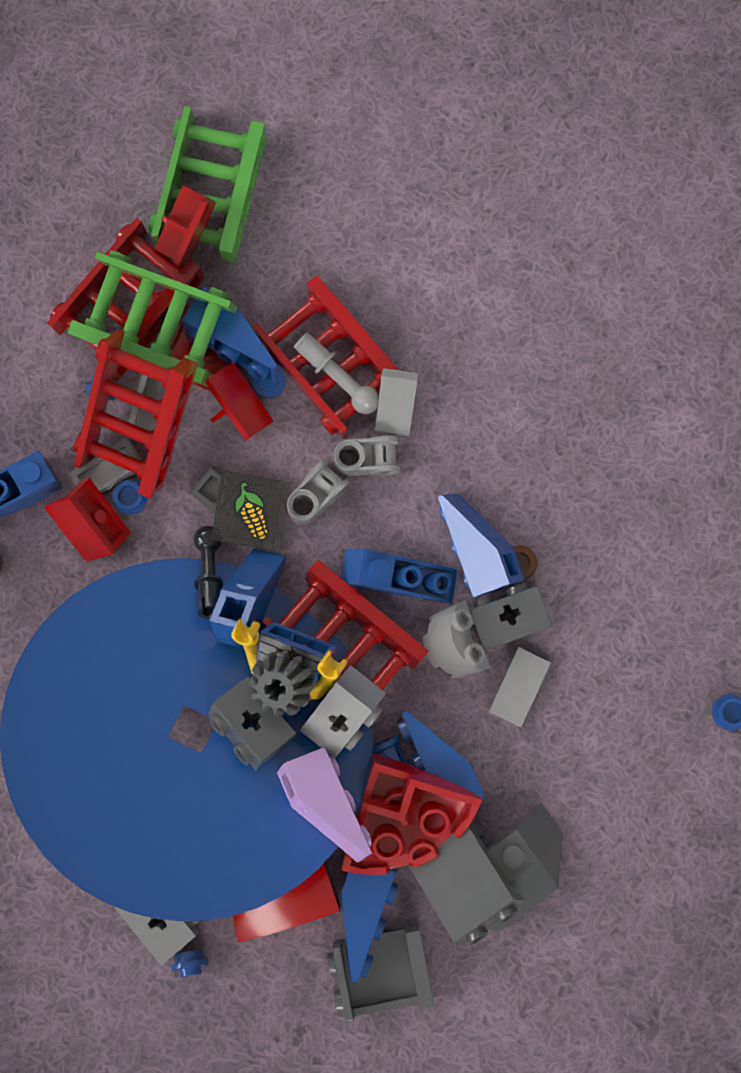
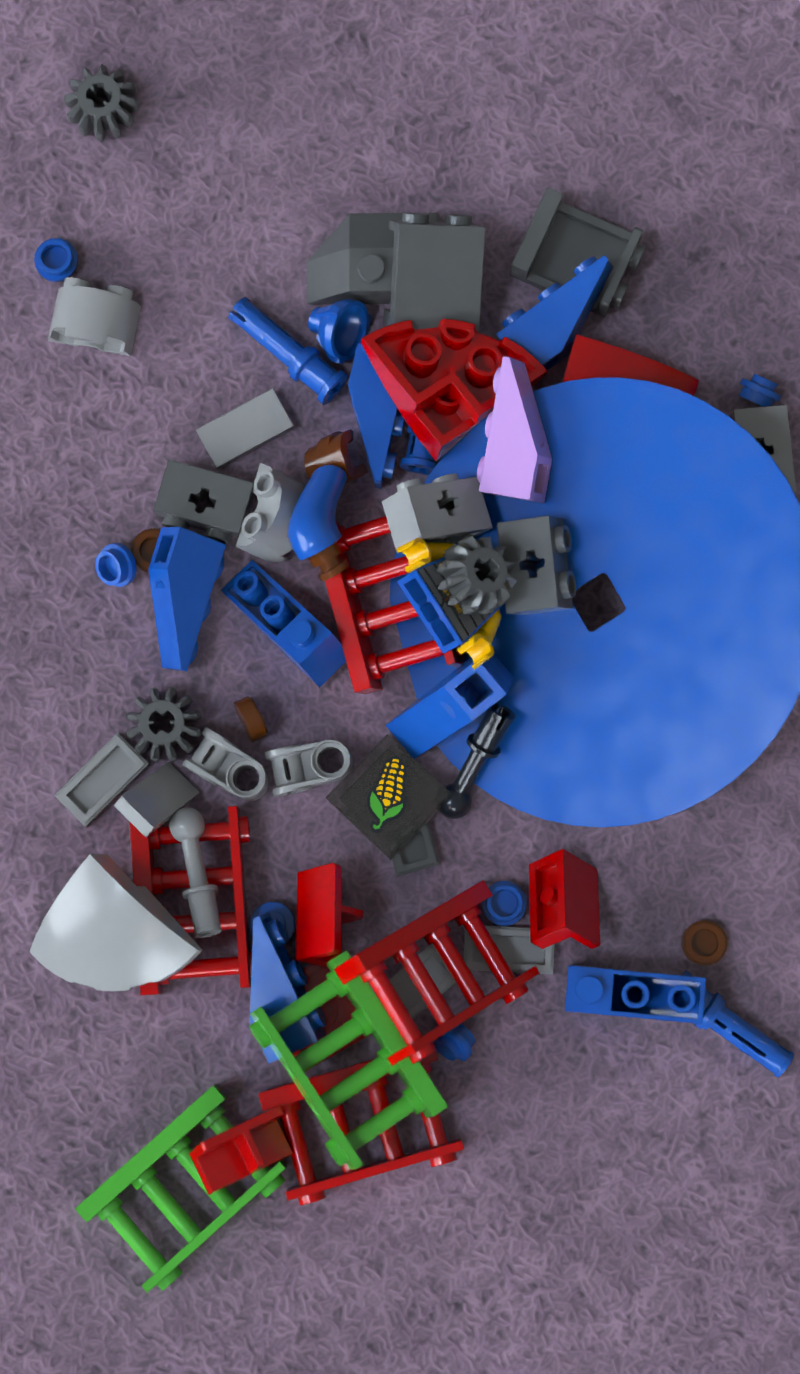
camera: 145 degrees left, 0 degrees up
(361, 299) = (110, 932): none -> light grey brick
(375, 498) = (251, 718): none -> reddish brown tile
(419, 446) = (162, 739): none -> dark grey gear
(423, 648) = (313, 520): none -> piece
(442, 394) = (101, 780): none -> light grey tile
(505, 801) = (340, 328): none -> blue piece
(513, 759) = (302, 362): none -> blue pin
(535, 535) = (116, 565): none -> blue plate
(674, 690) = (95, 317): none -> light grey cylinder

